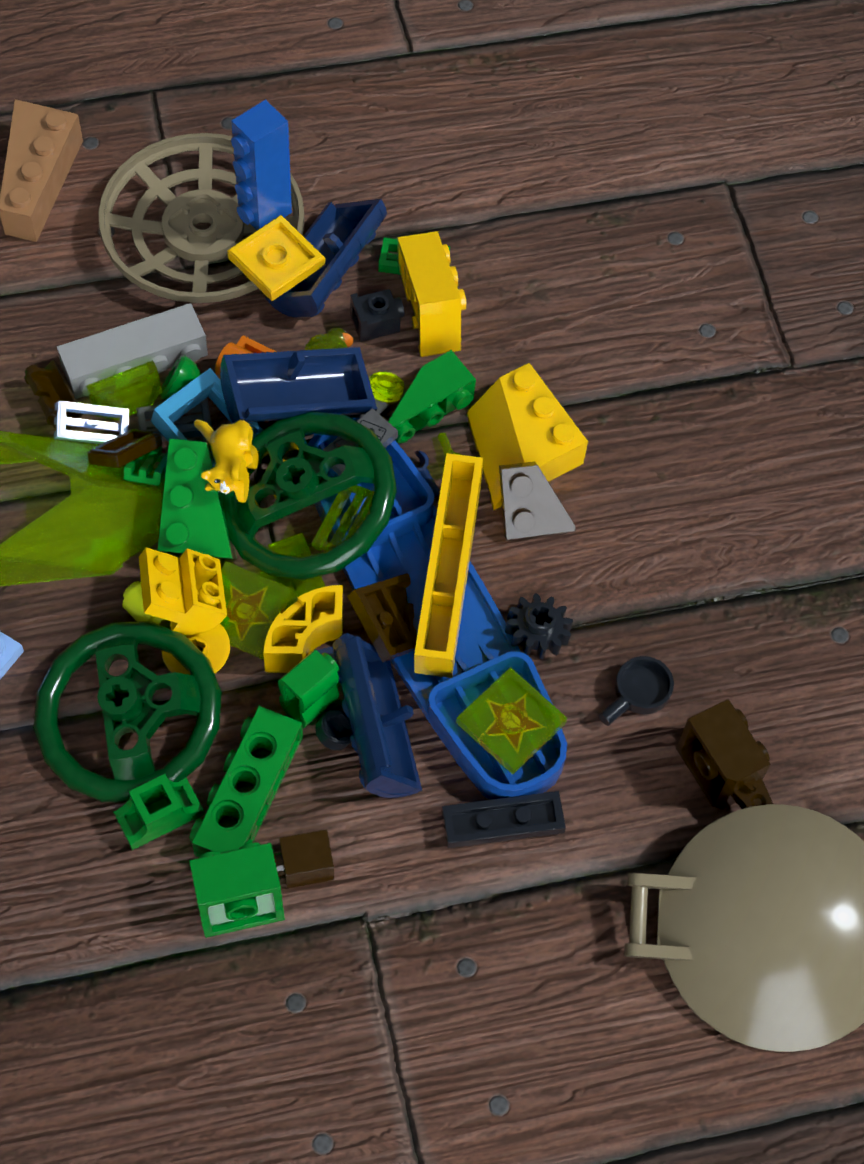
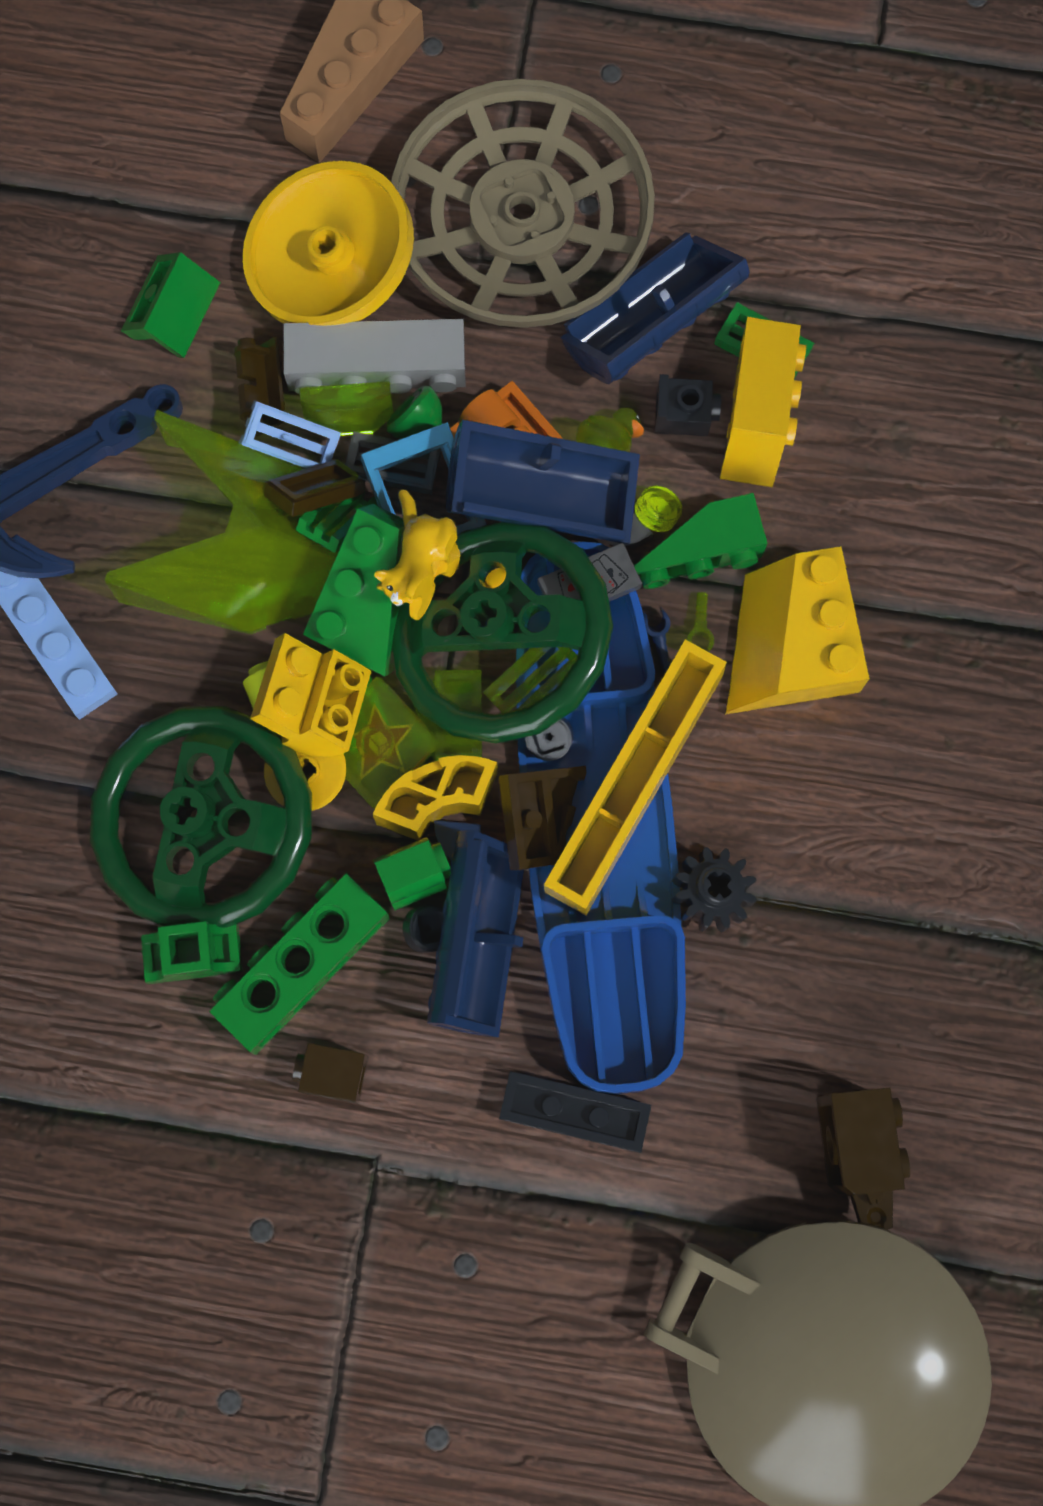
camera: 25 degrees right, 15 degrees up
(68, 286) = (328, 245): none -> yellow dish
(237, 889) = (236, 1084): green slope -> none
(261, 165) = (603, 176): blue brick -> none
(276, 257) = (588, 293): yellow tile -> none
(373, 564) = (551, 743): none -> black tile
(511, 720) = (627, 1004): clear neon green tile -> none
(530, 503) = (768, 730): wing -> none
(641, 687) = (804, 1011): black piece -> none

